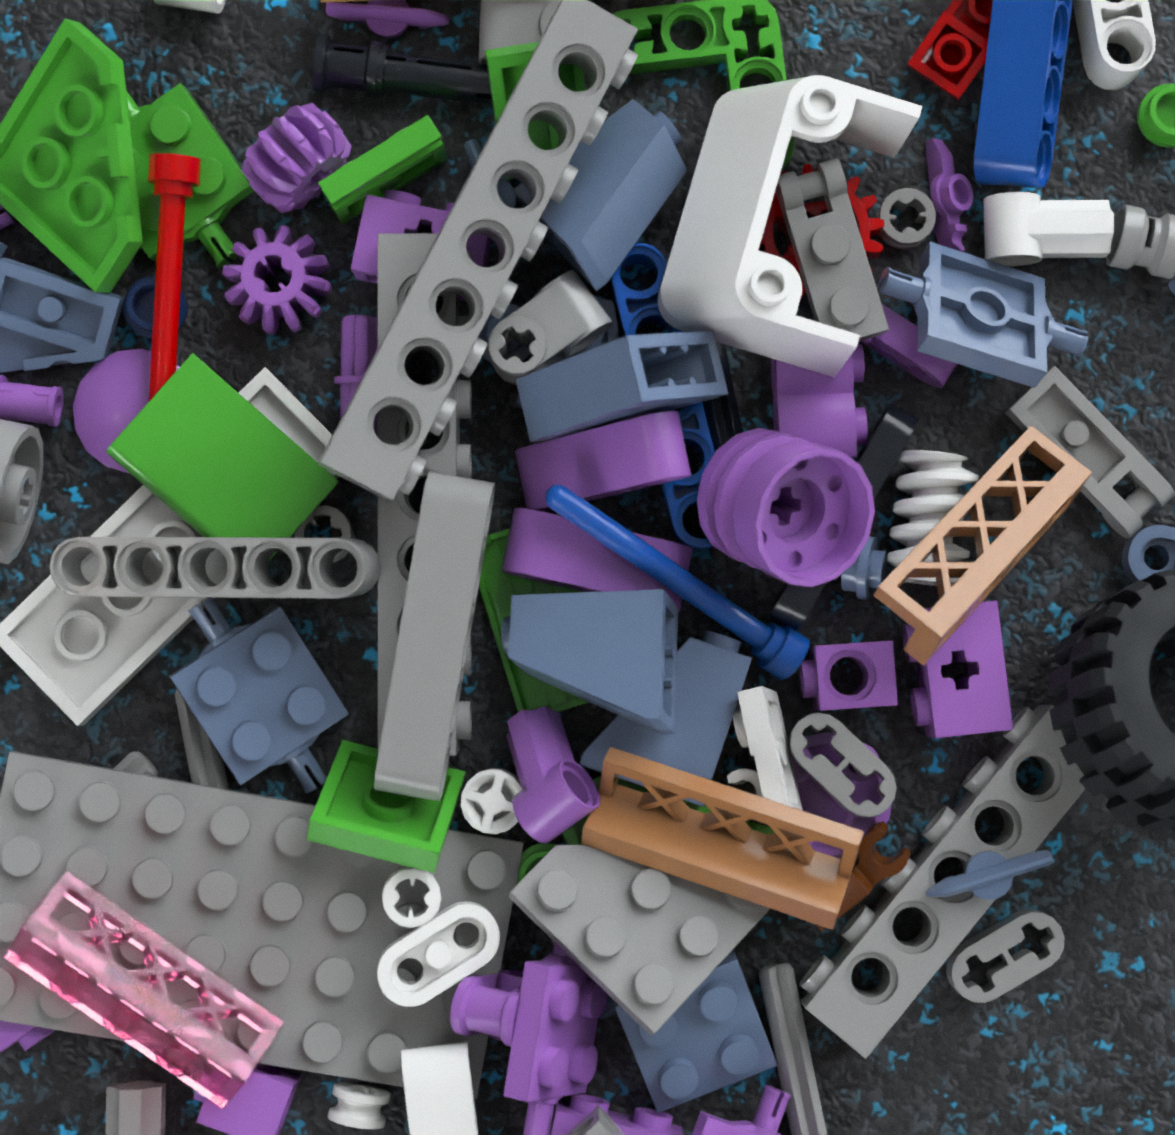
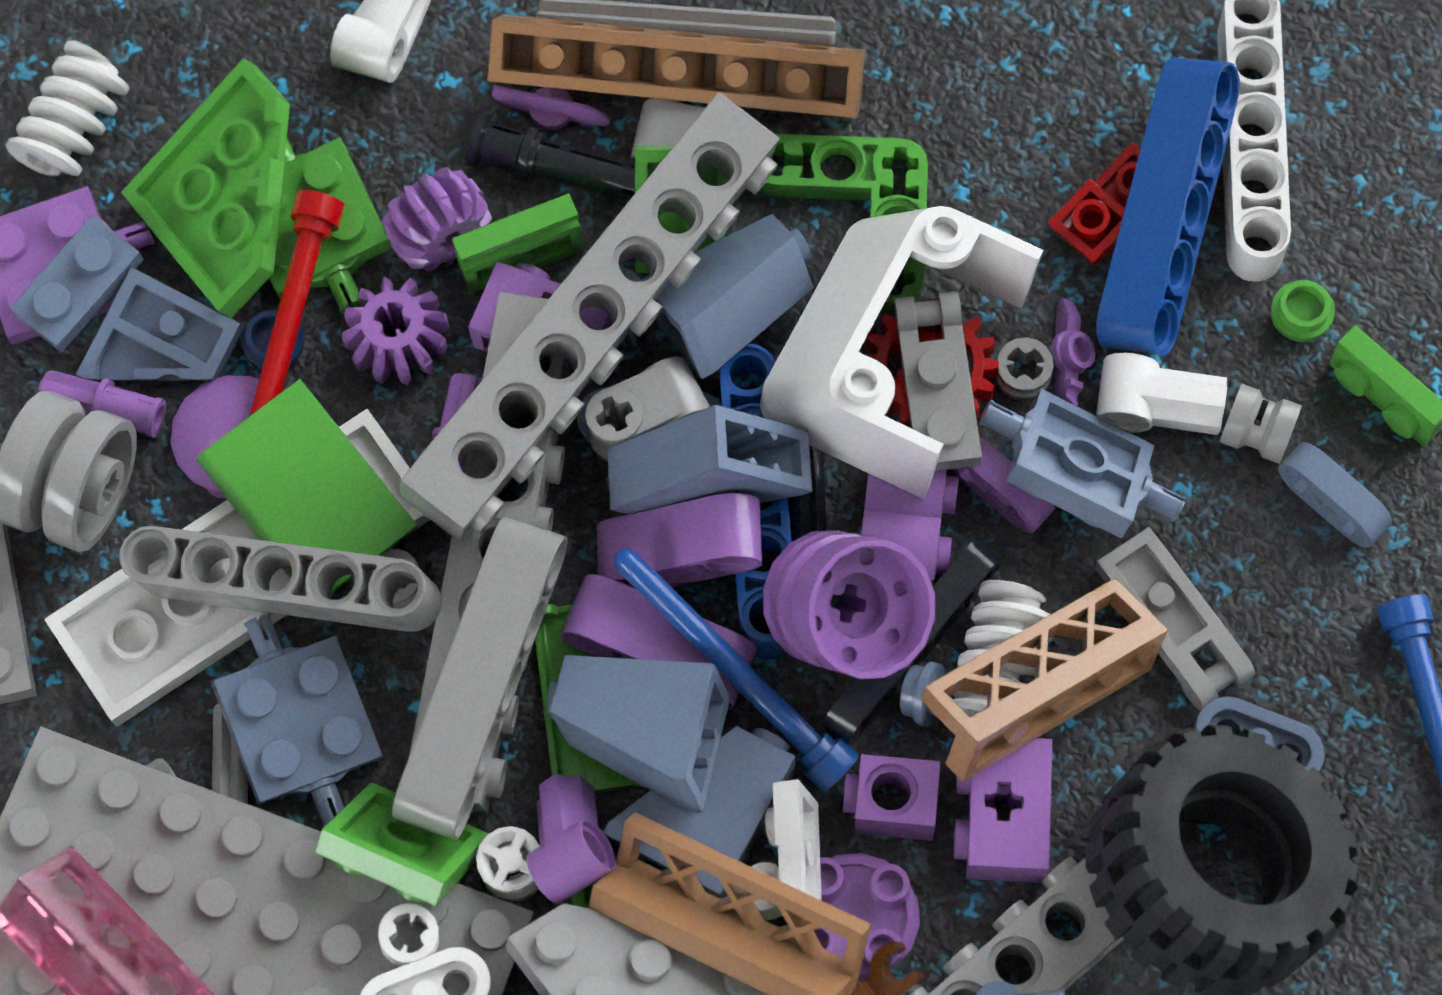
camera: 15 degrees right, 15 degrees down
(853, 754) = (881, 870): light grey beam -> none

